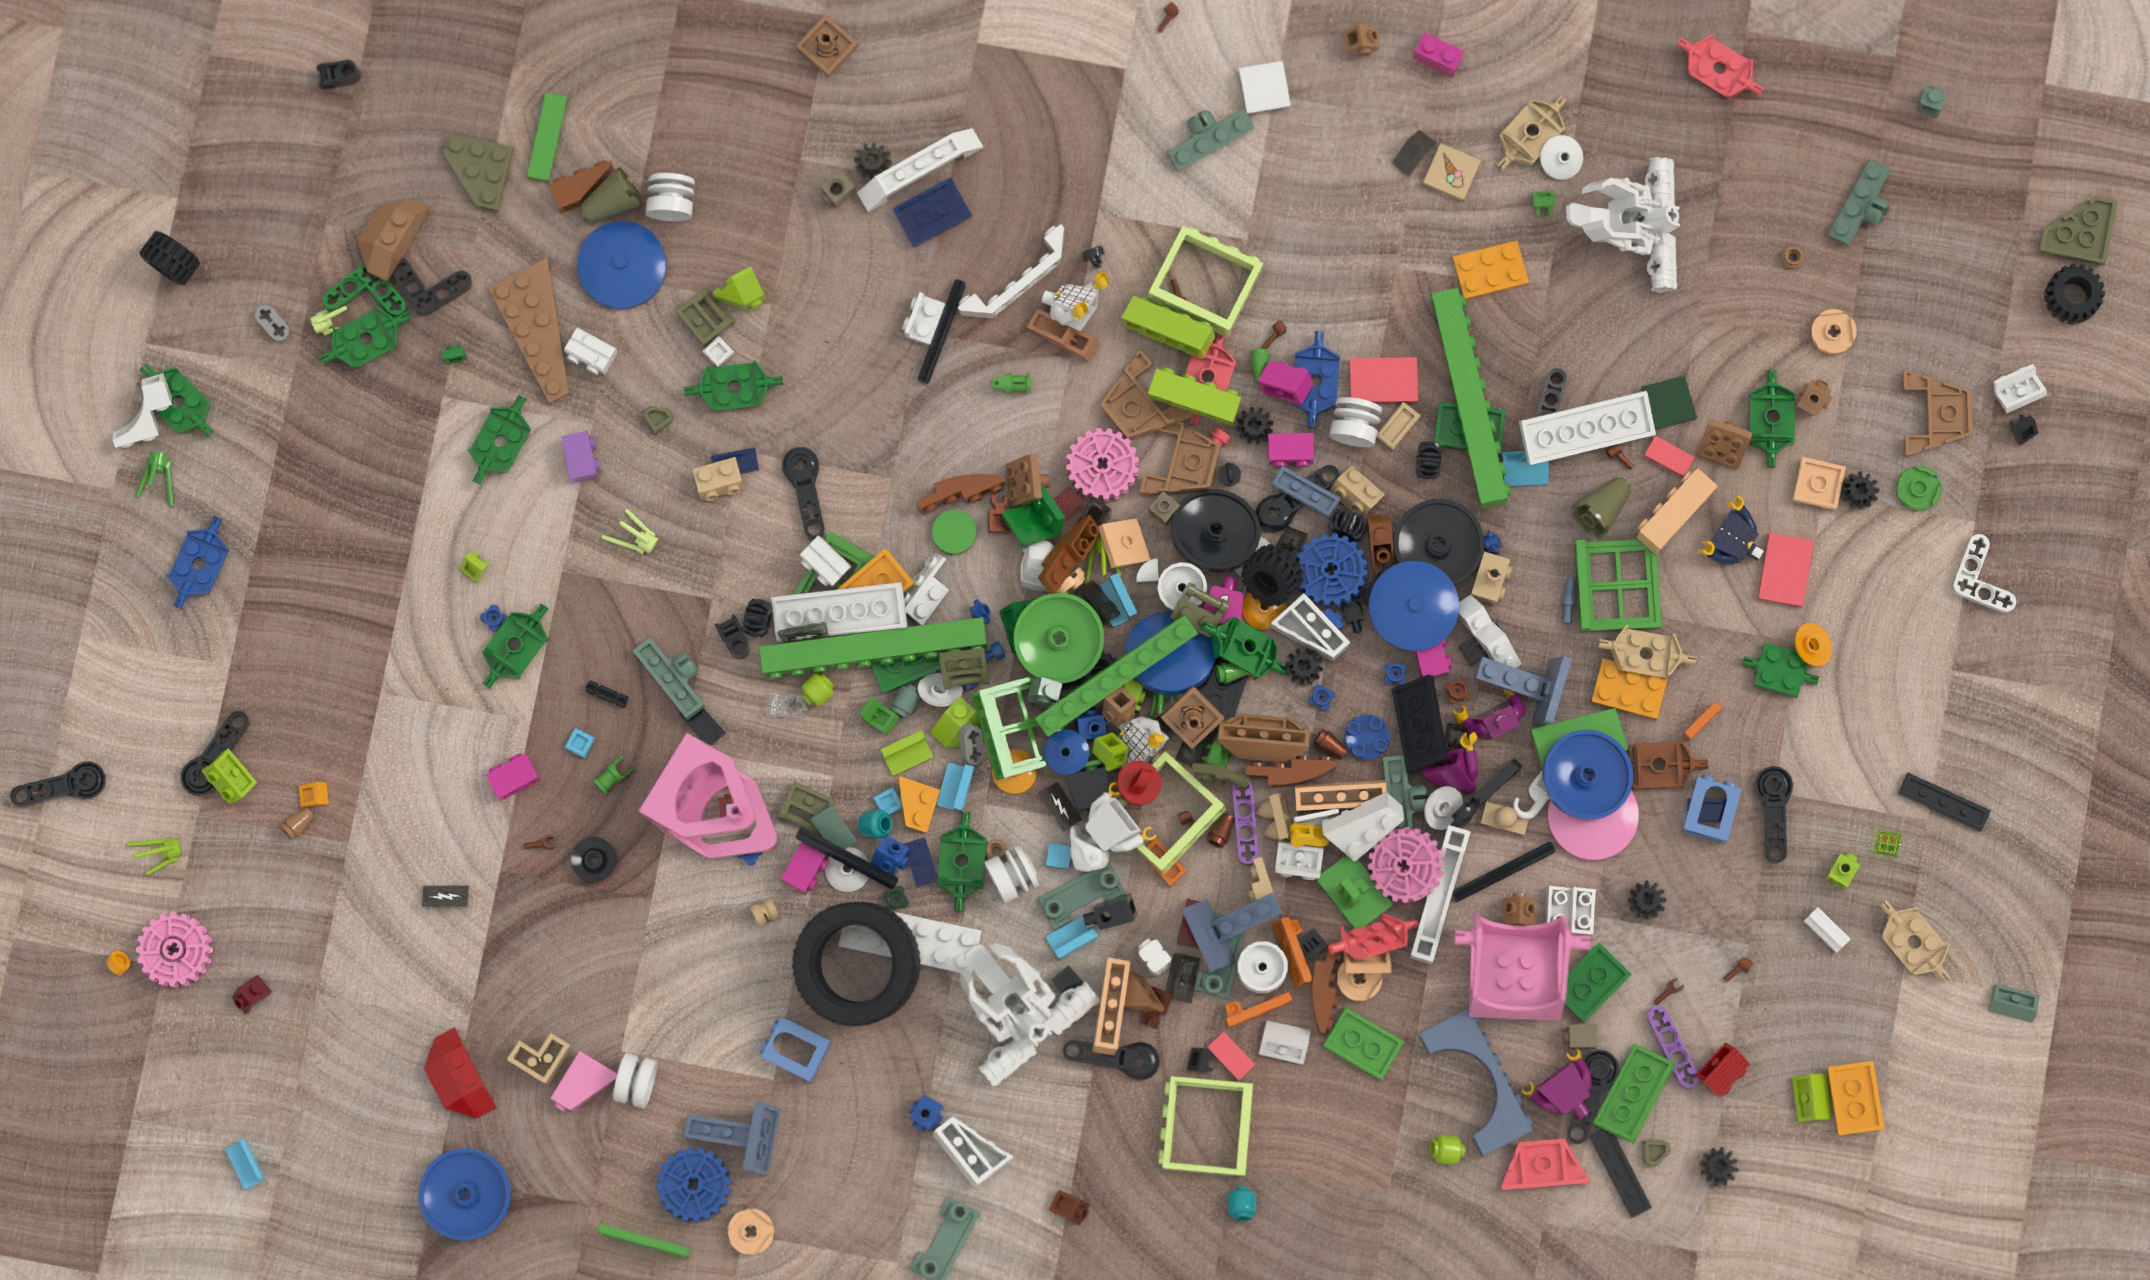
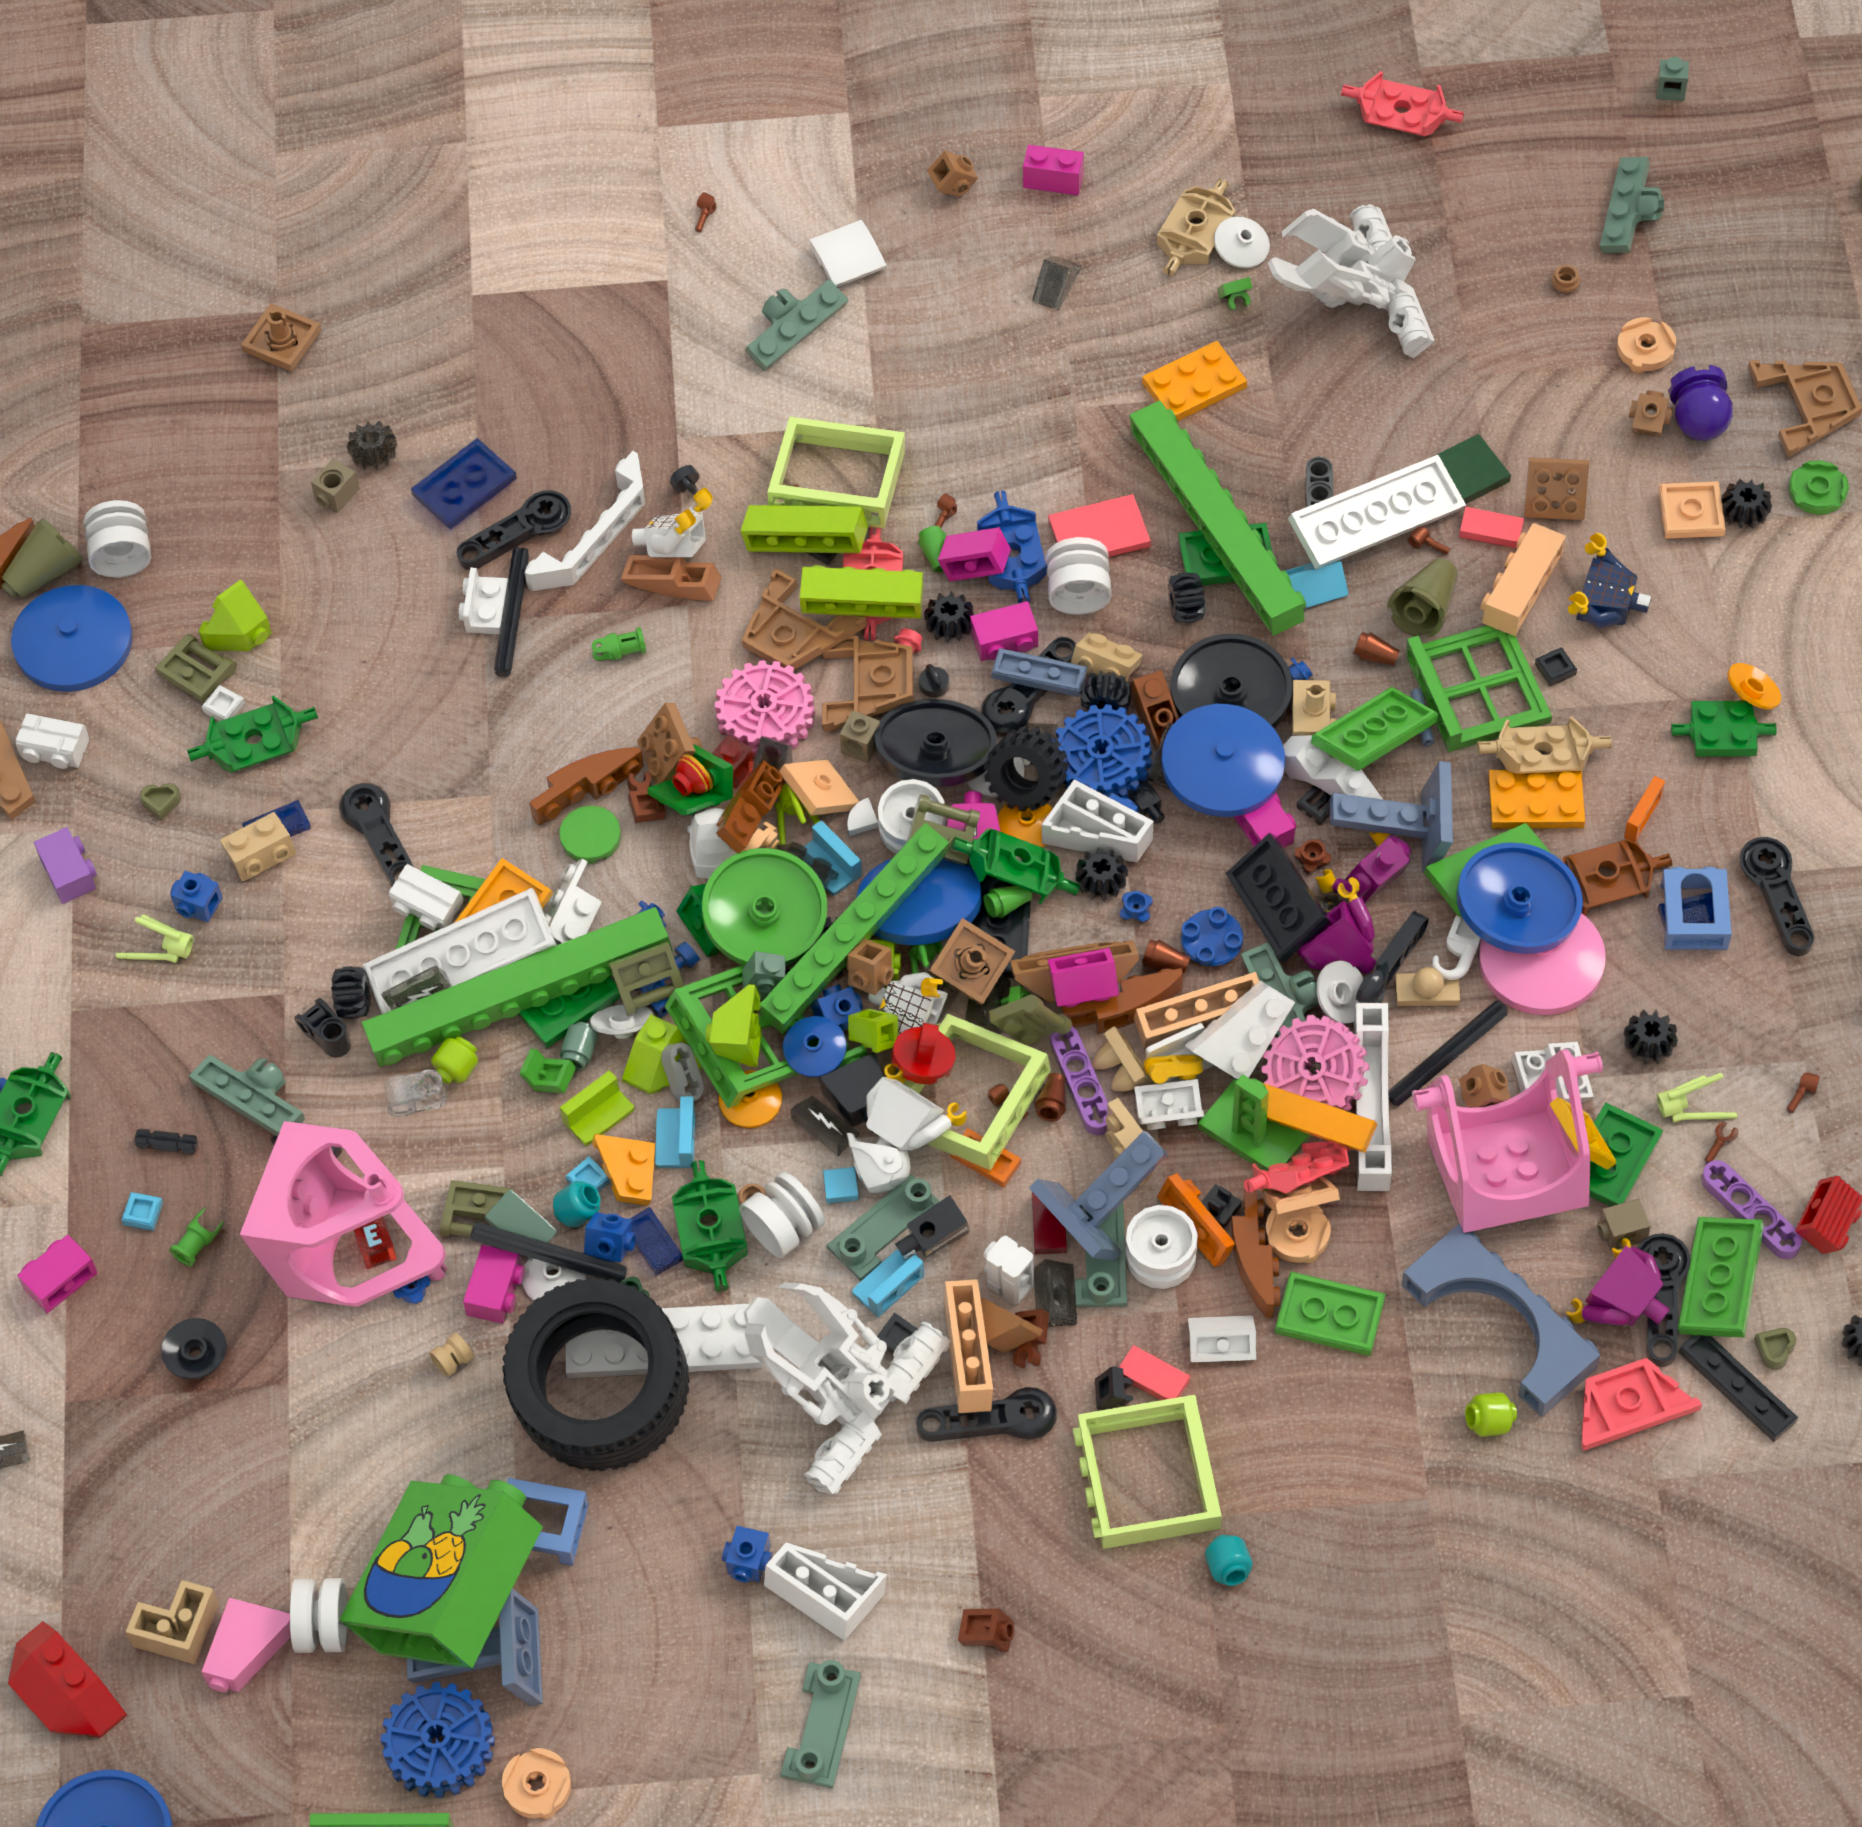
camera: 15 degrees left, 20 degrees down
(541, 843) = (118, 1349): copper hand -> none
(671, 514) = (196, 896): none -> blue brick
(723, 1076) = (442, 1571): none -> bright green brick
(917, 166) = (471, 397): white slope -> none
(965, 260) = (517, 528): none -> black beam
(1014, 734) = (736, 1028): none -> lime slope
(1033, 517) = (691, 777): none -> red piece
(1237, 1015) = (1148, 1320): orange hinge -> none
(1265, 754) = (1083, 977): none -> dark pink brick
(1390, 669) = (1222, 847): blue plate -> none
(1392, 904) = (1319, 1119): none -> light orange tile
(1398, 426) = (1134, 577): tan tile -> none
(1451, 172) = (1110, 290): tan tile -> none
(1529, 610) = (1374, 728): none -> bright green tile
(1552, 537) = (1375, 649): none -> copper cone
(1577, 972) = (1598, 1148): none -> yellow tile
(1646, 953) = (1674, 1101): none -> yellowish green plant
(1678, 585) = (1555, 666): none -> black tile
(1767, 435) = (1608, 472): green plate -> none
(1785, 570) = (1686, 616): coral tile -> none
(1854, 404) = (1701, 402): none -> dark purple tile

